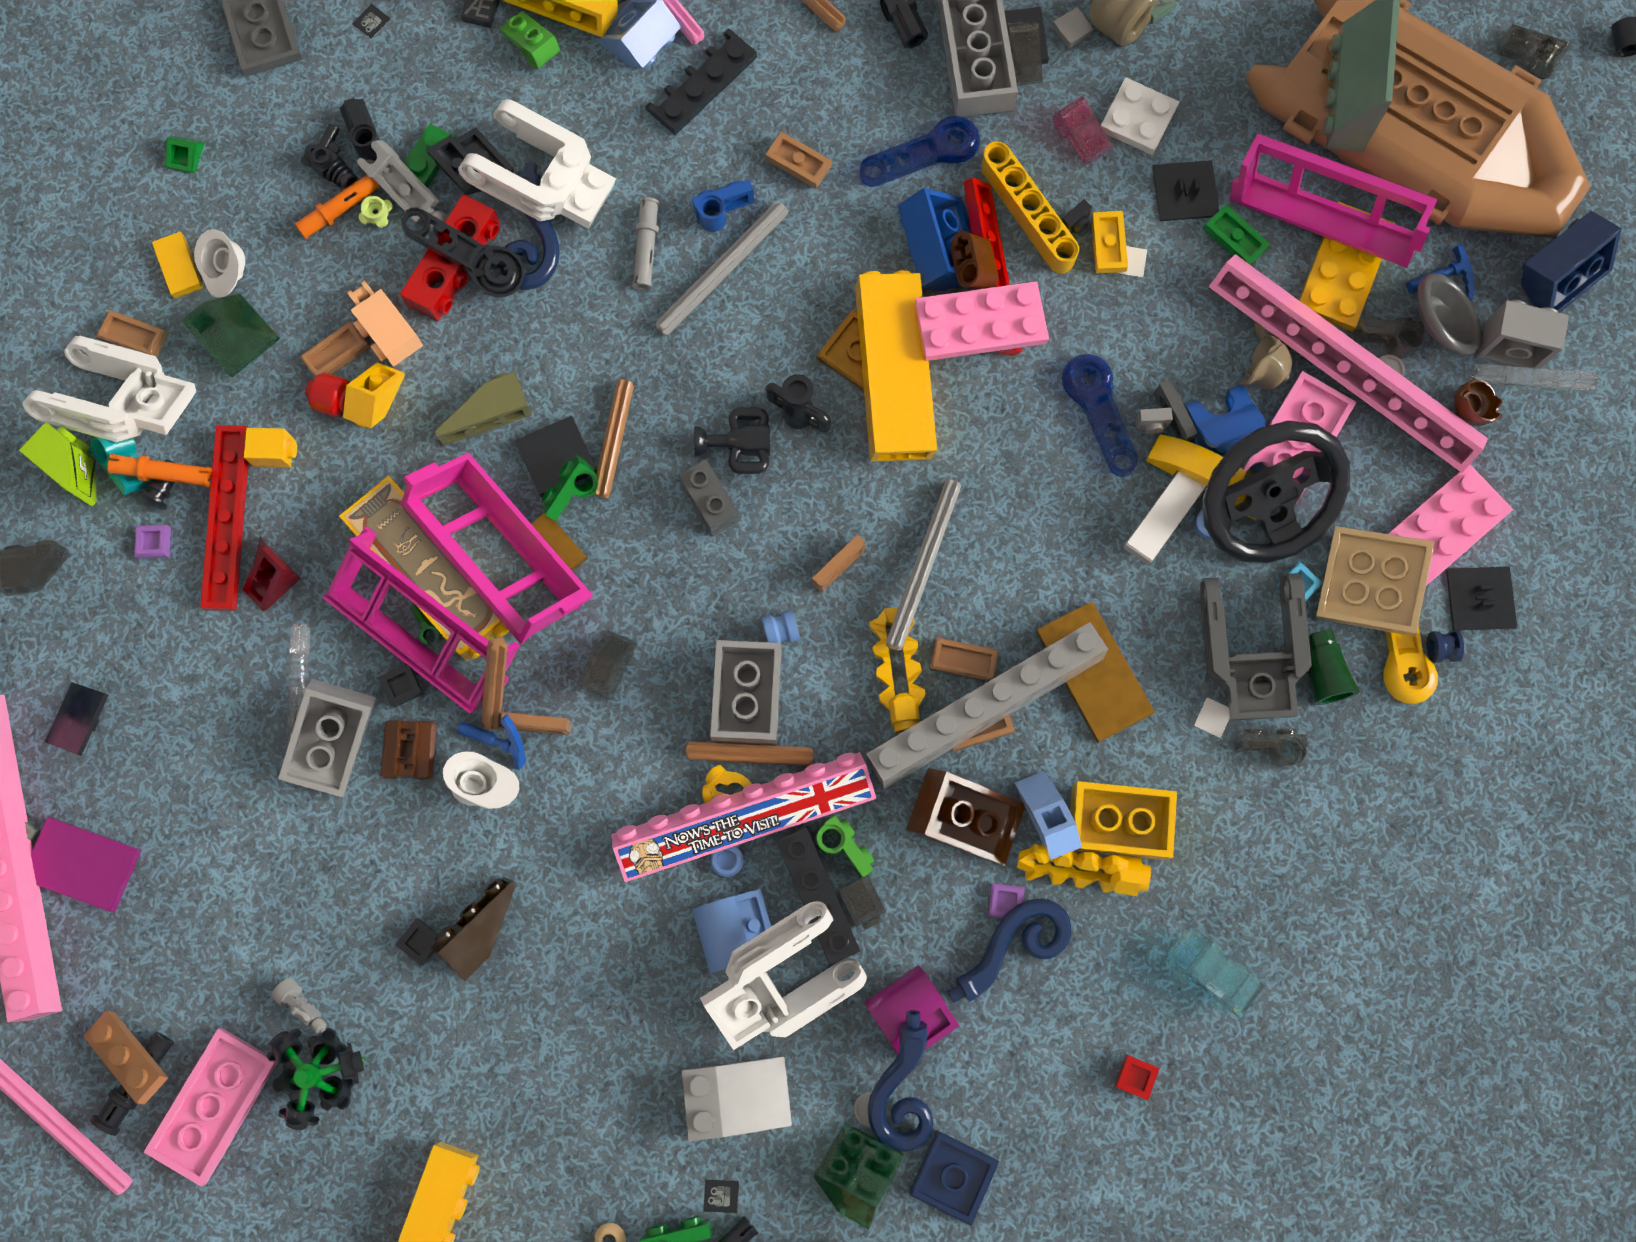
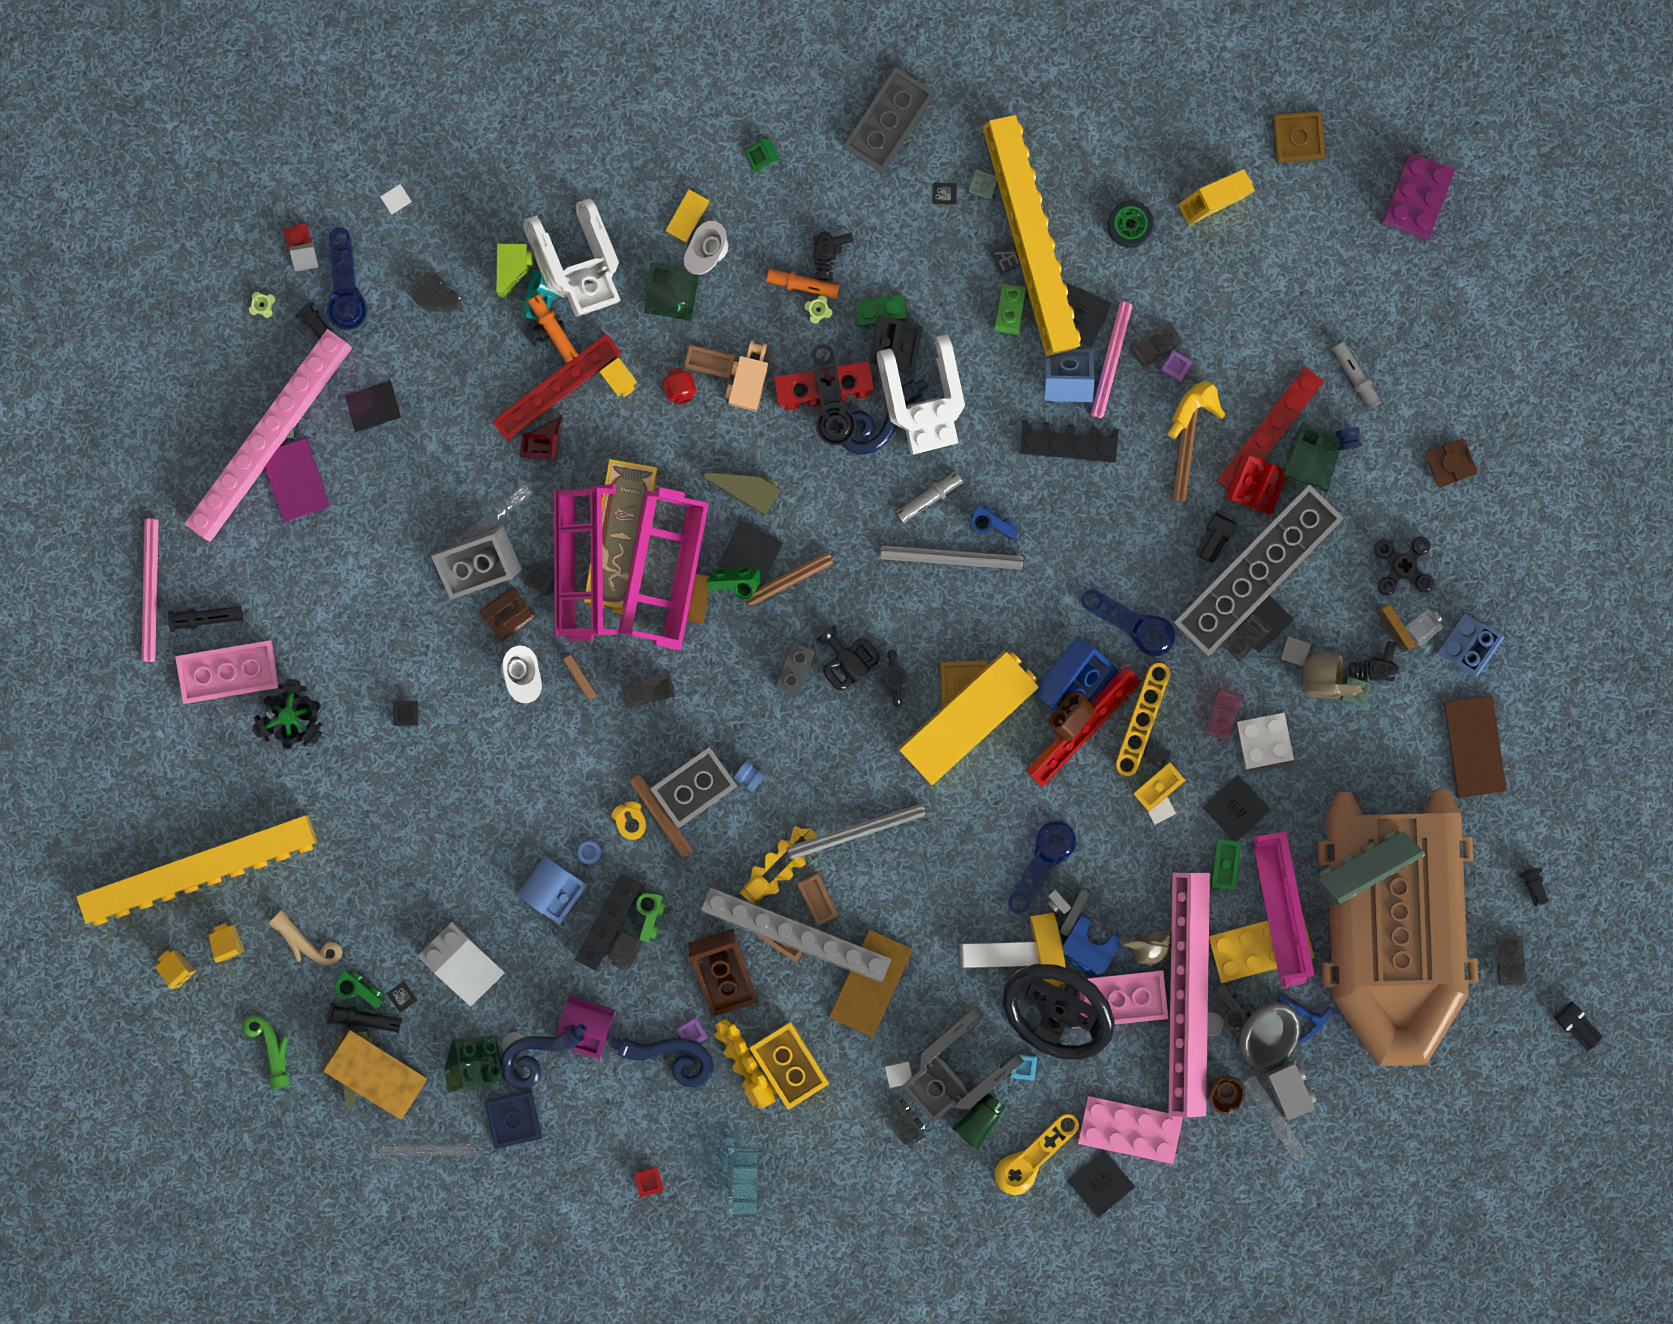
camera: 55 degrees right, 10 degrees up
(125, 1057) = (215, 602): medium nougat plate -> none
(131, 334) = (622, 228): medium nougat tile -> none
(152, 541) = (508, 354): medium lavender tile -> none
(289, 993) = (319, 662): light grey piece -> none
(360, 127) = (865, 254): black piece -> none
(371, 395) = (700, 411): yellow slope -> none
(400, 182) = (846, 316): light grey plate -> none
(424, 625) = (586, 561): green hand -> none
(472, 937) = (434, 742): dark brown slope -> none
(494, 683) = (581, 640): medium nougat axle -> none
(511, 745) = (556, 674): blue piece -> none
(742, 816) = (620, 842): brick -> none
(751, 1001) = (520, 932): white plate -> none
(798, 160) = (1061, 548): medium nougat plate -> none
(839, 563) = (816, 779): medium nougat tile -> none
(981, 321) = (1035, 750): bright pink plate -> none
(1049, 814) = (758, 1018): light blue slope -> none
(1375, 580) = (1056, 1110): tan plate -> none
(1445, 646) = (1047, 1179): dark blue wheel -> none
(1571, 262) = (1365, 1087): dark blue slope -> none

